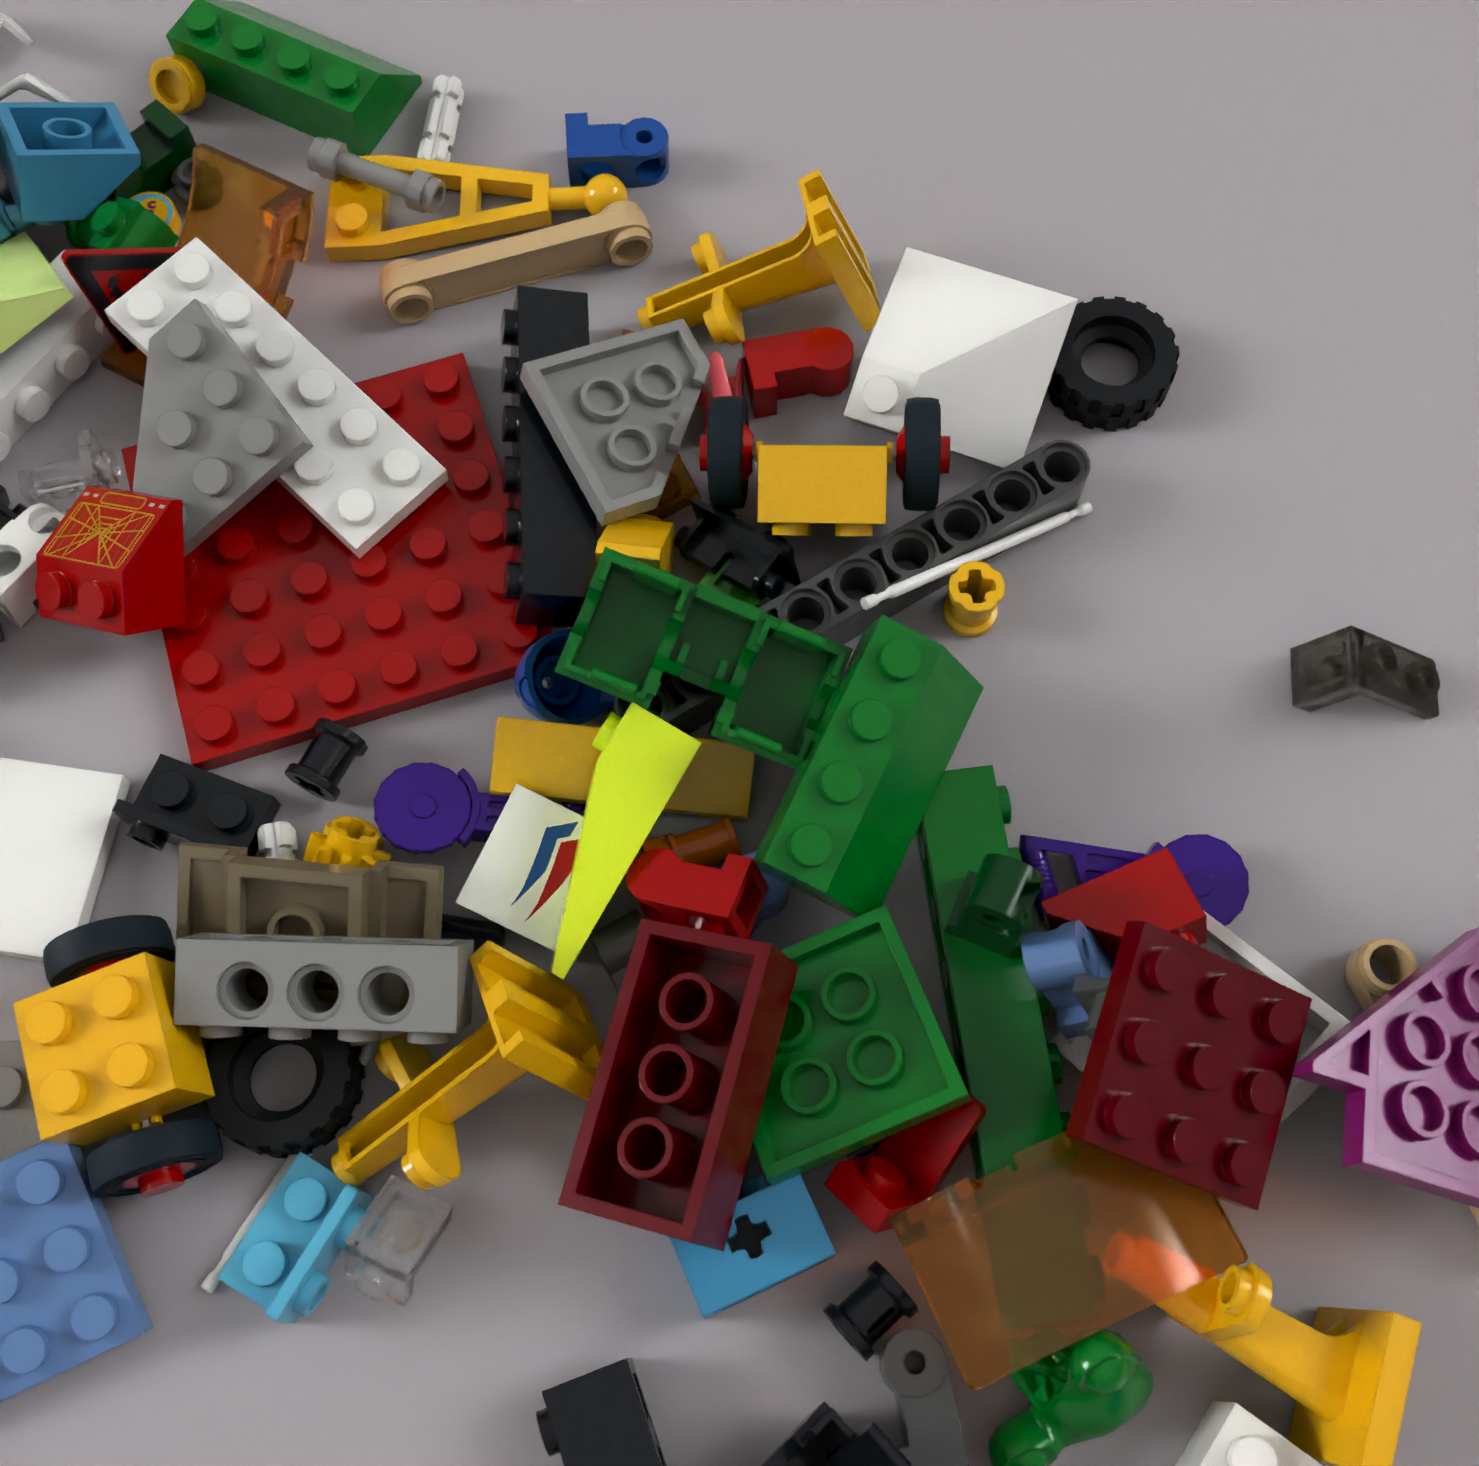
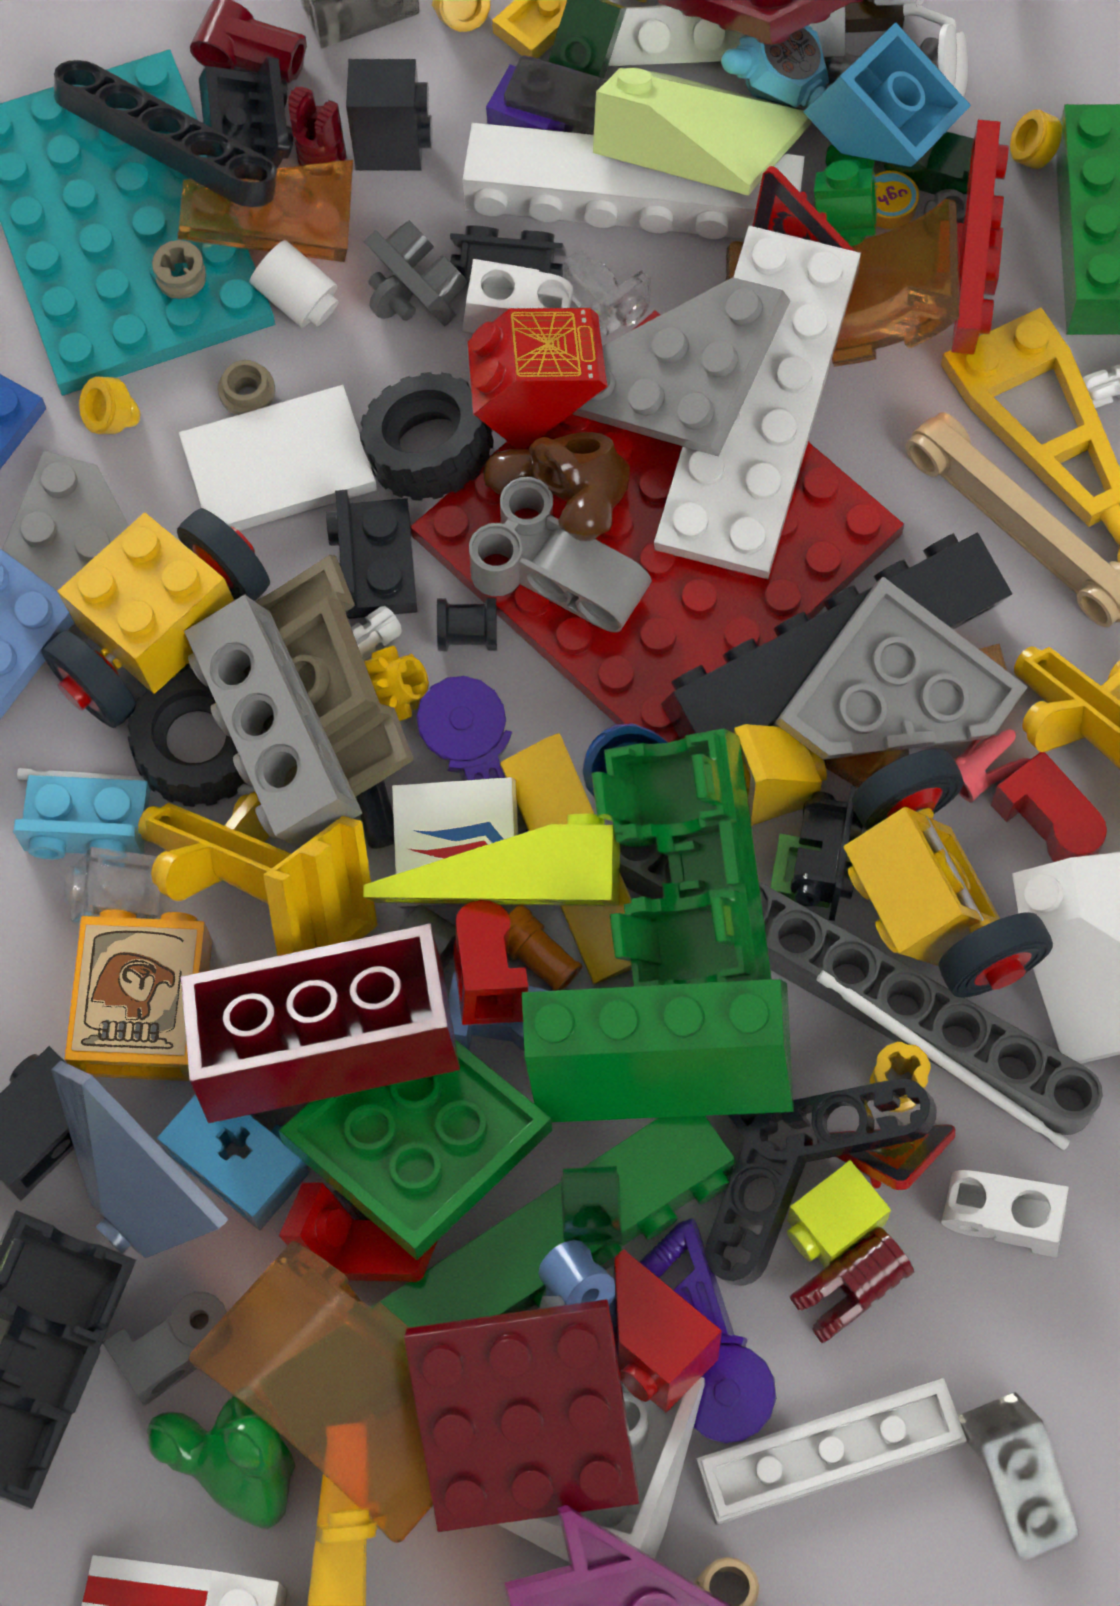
camera: 65 degrees right, 0 degrees up
(71, 685) = (437, 470): none -> black tyre
(195, 121) = (980, 238): none -> red plate
(239, 576) = (576, 469): none -> reddish brown head
(318, 641) = (544, 558): none -> light grey piece
(333, 161) = (1039, 397): light grey bar -> none
(529, 1268) = (129, 994): none -> brick
(741, 1366) = (128, 1175): none -> sand blue slope
(870, 1310) = (223, 1269): black bush -> none
(1014, 730) = (785, 1166): none -> black piece
(1039, 639) = (900, 1163): none -> piece
(1076, 711) = (836, 1215): none -> neon yellow brick
(1135, 571) = (1006, 1209): none -> white leg
(1142, 728) = (862, 1276): none -> dark red hinge
(1281, 826) = (830, 1451): none -> white tile

